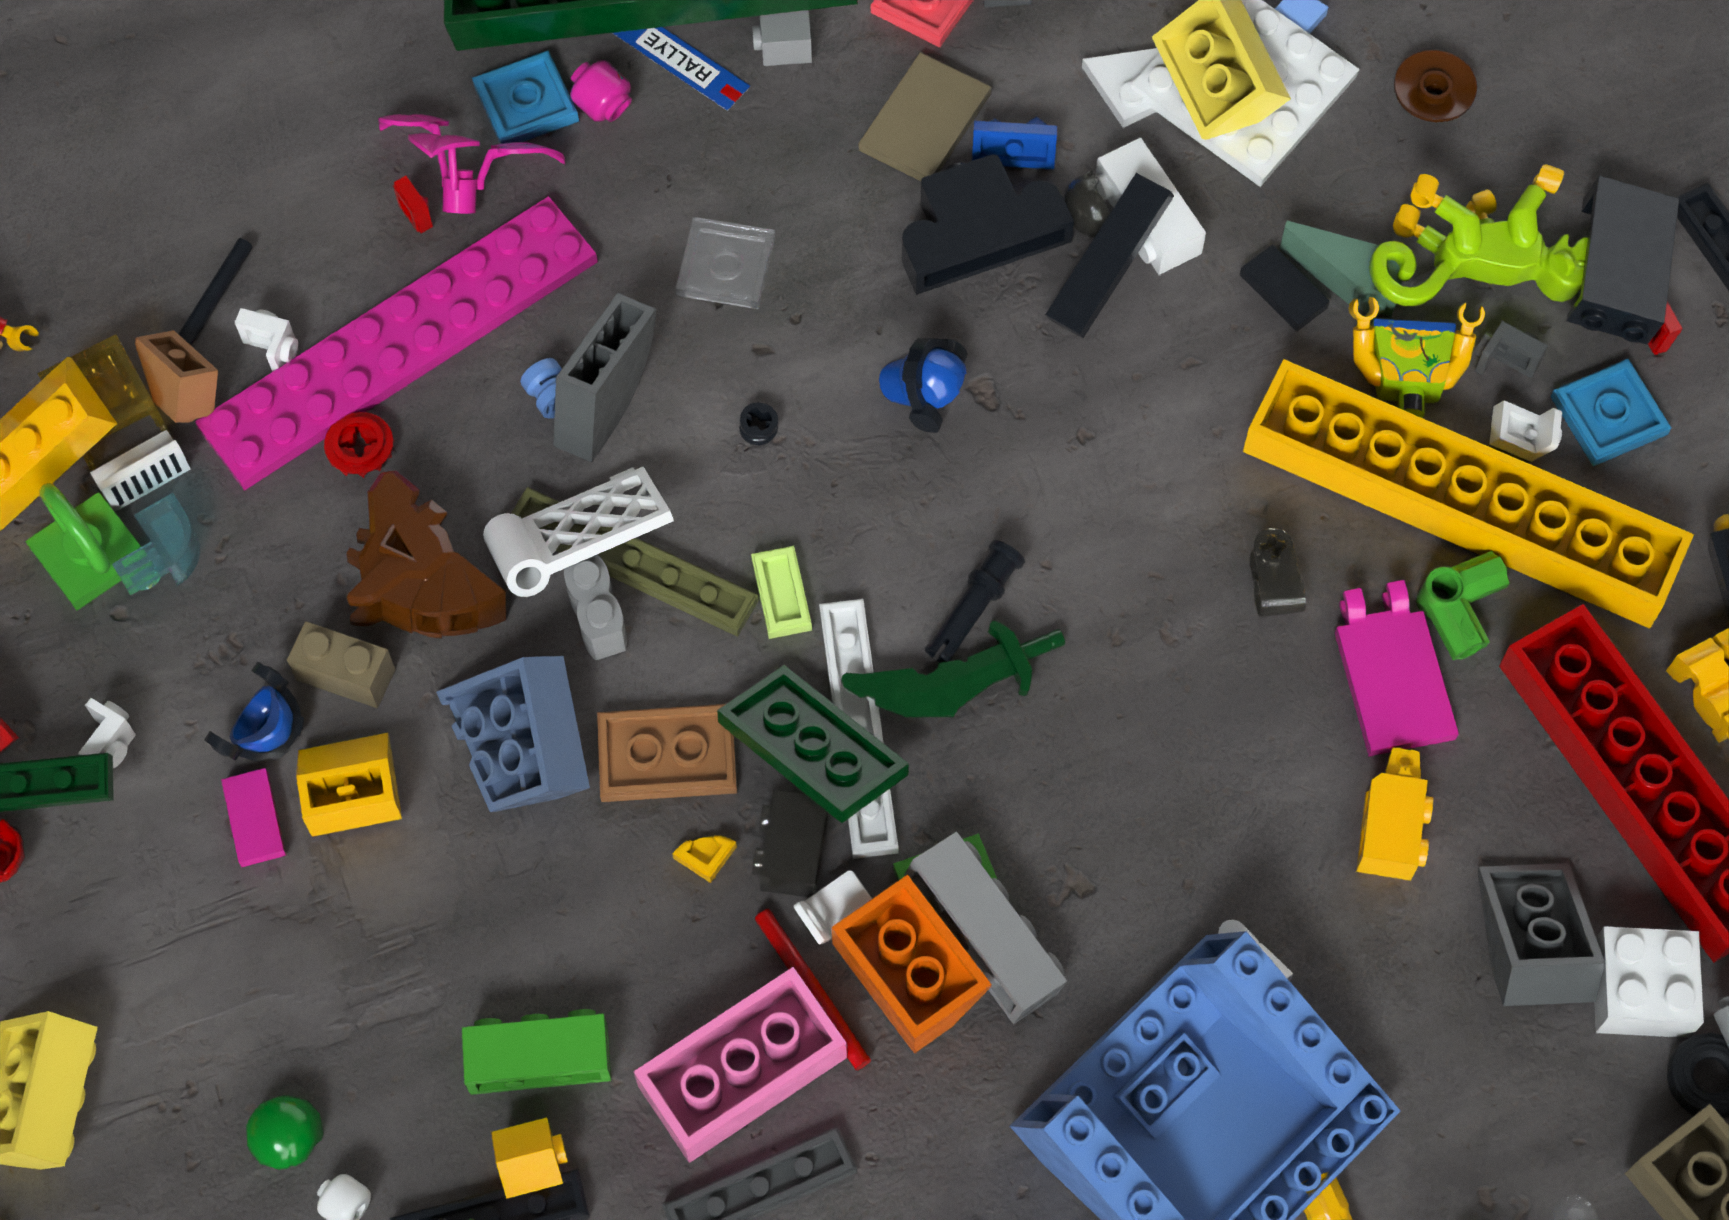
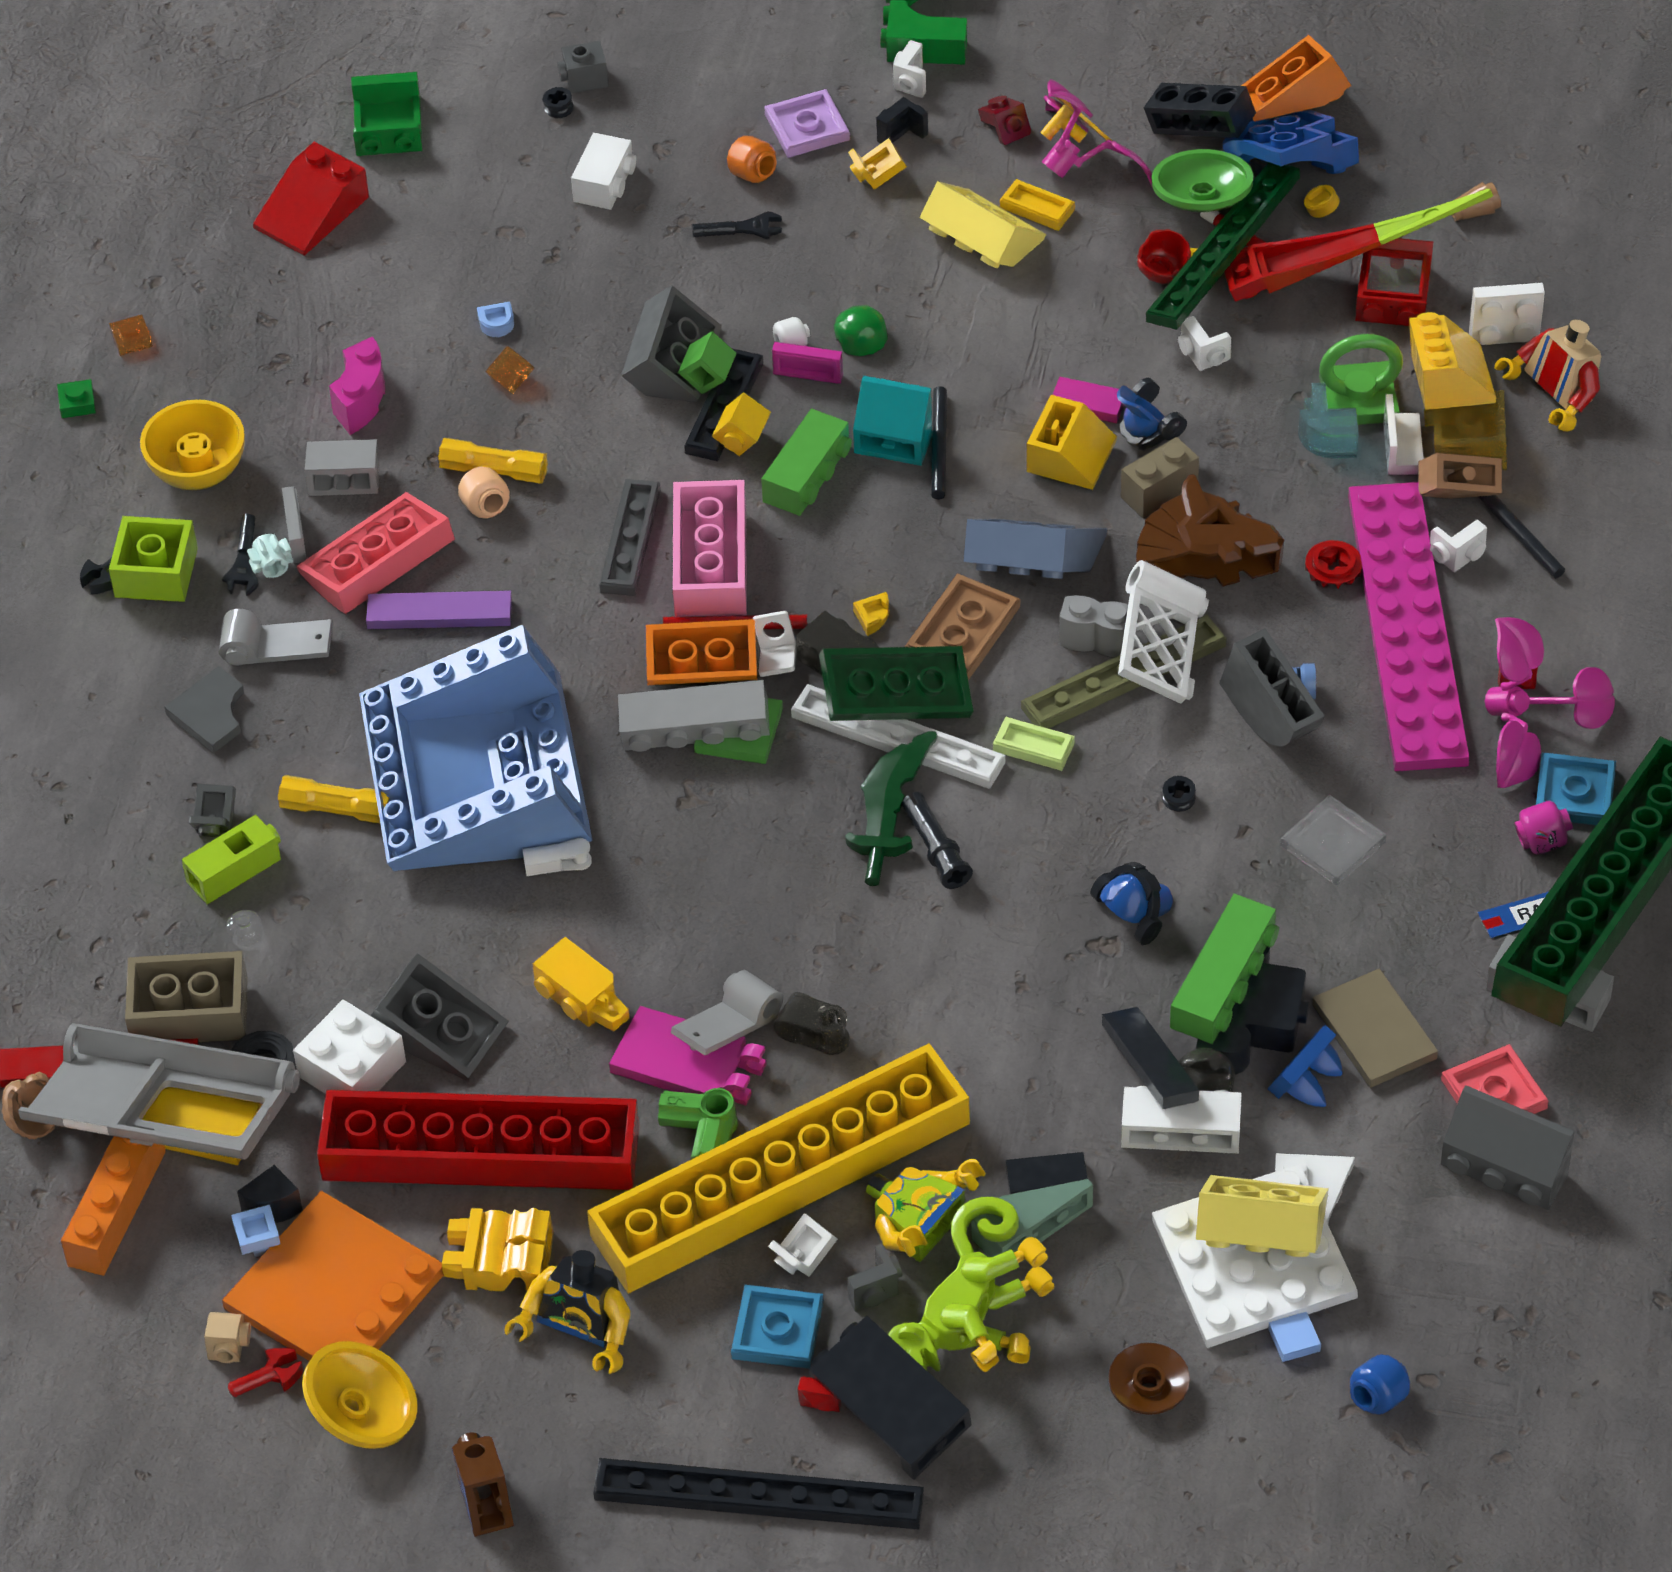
camera: 125 degrees right, 15 degrees down
(378, 1151) = (807, 362): none -> dark pink tile
(410, 938) = (939, 443): none -> black bar
(430, 981) = (893, 420): none -> teal slope
(981, 228) = (1223, 969): none -> bright green brick
(1305, 651) = (744, 1008): none -> light grey door

